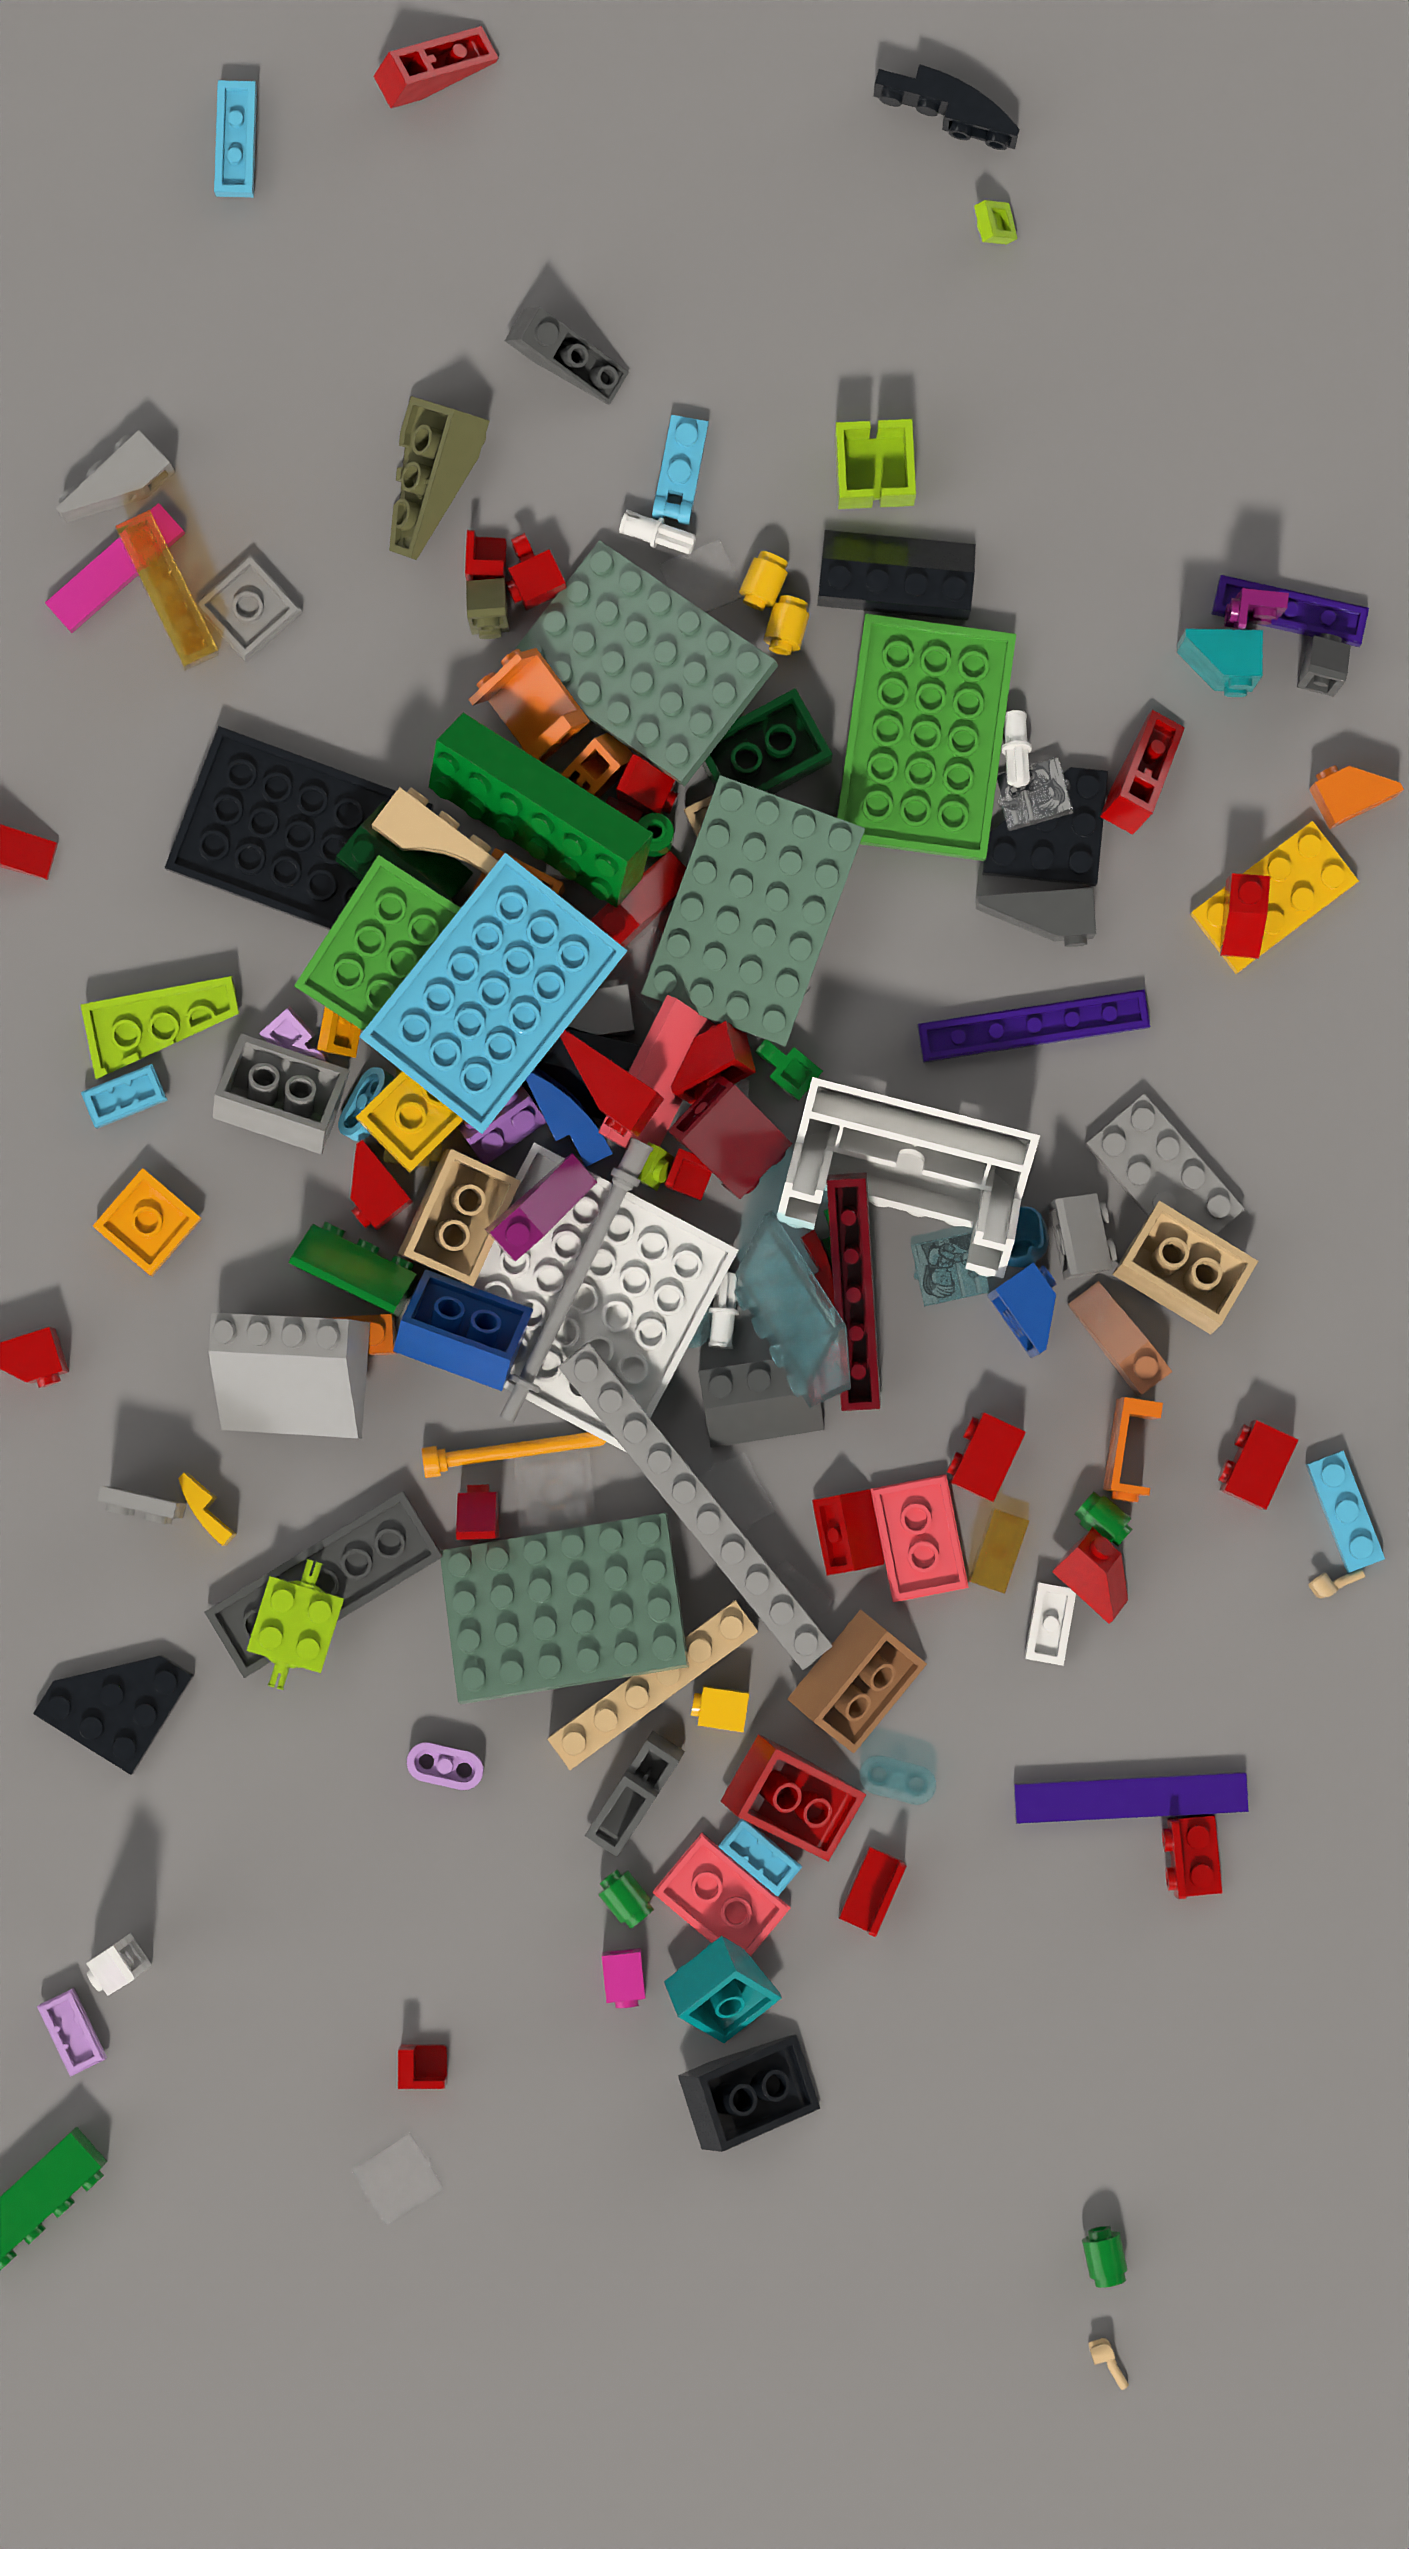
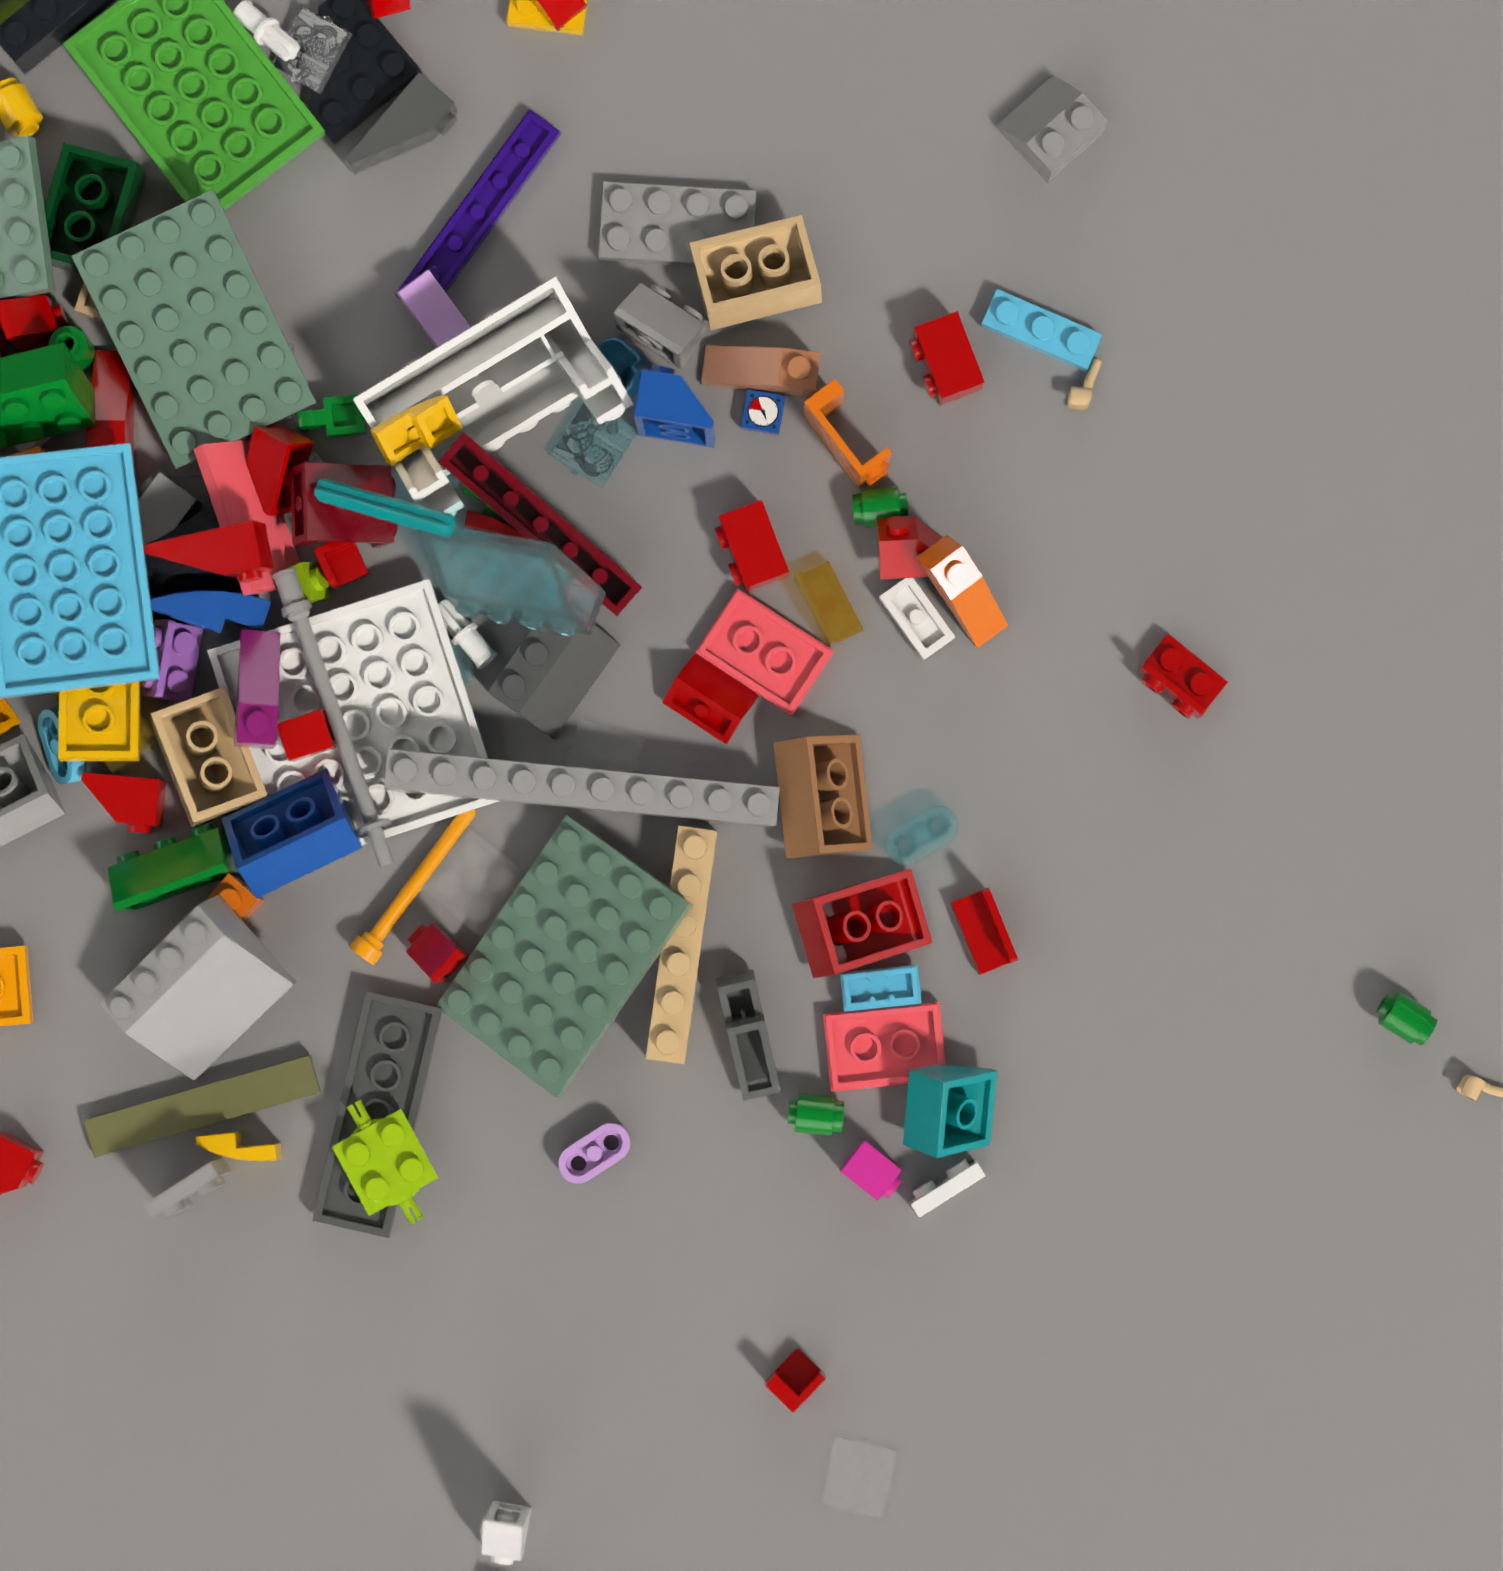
camera: 45 degrees left, 0 degrees up
(116, 1707) = (320, 1353): black plate -> none
(209, 1454) = (202, 1106): none -> olive tile
(542, 1274) = (306, 735): none -> red panel
(679, 2045) = (931, 1195): none -> white plate
(721, 1708) = (747, 912): yellow brick -> none
(748, 2093) = (1042, 1161): black slope -> none
(757, 1176) = (385, 507): none -> teal axle
(842, 1141) = (417, 426): none -> yellow slope
(932, 1066) = (433, 309): none -> lavender tile
(1090, 1369) = (763, 412): none -> tile
(1102, 1639) = (963, 589): none -> orange slope
(1131, 1797) = (1097, 681): dark purple tile -> none

